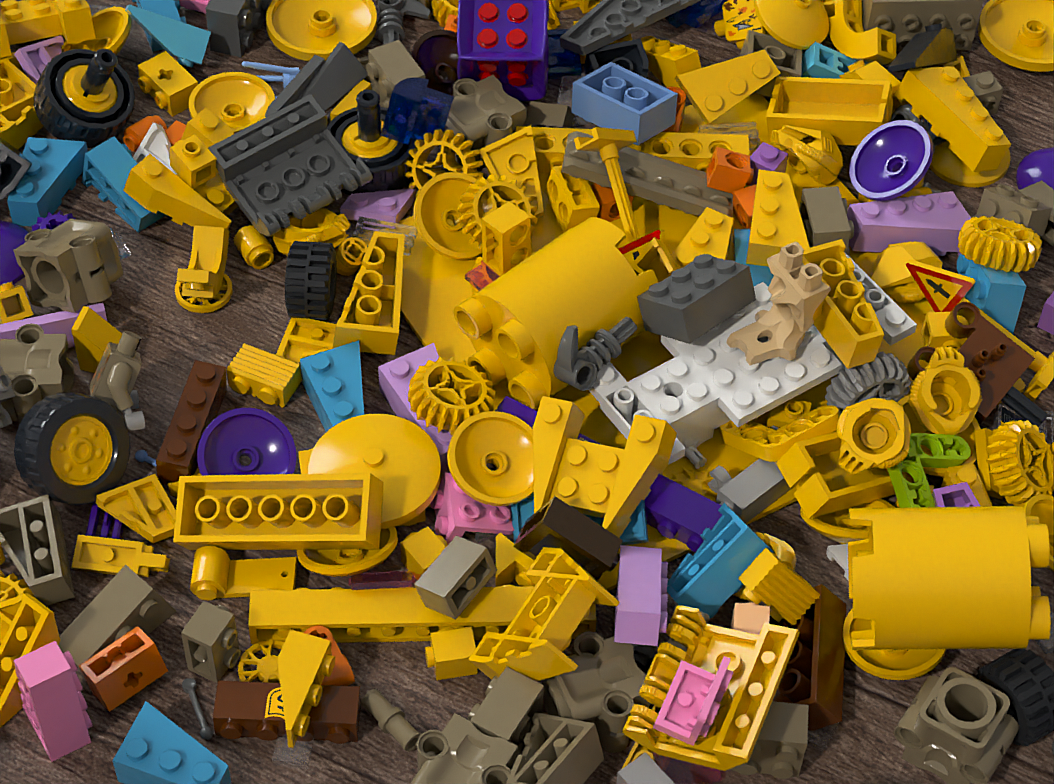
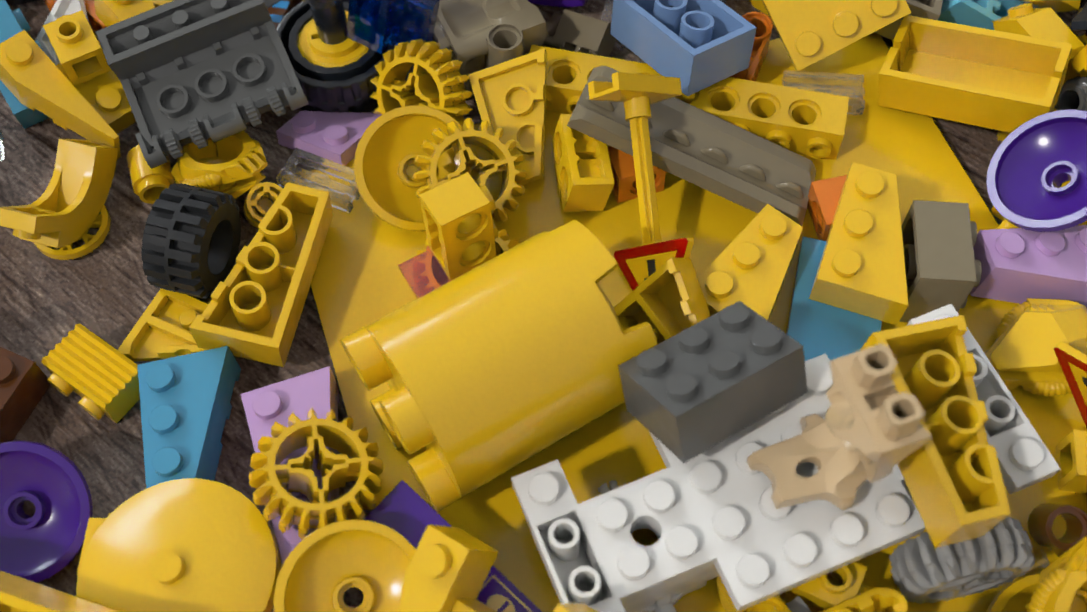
camera: 15 degrees right, 10 degrees up
(581, 366) = (500, 476): dark grey piece -> none
(729, 170) = (811, 149): orange brick -> none
(767, 158) = (867, 143): medium lavender brick -> none
(815, 153) = (935, 132): yellow helmet -> none

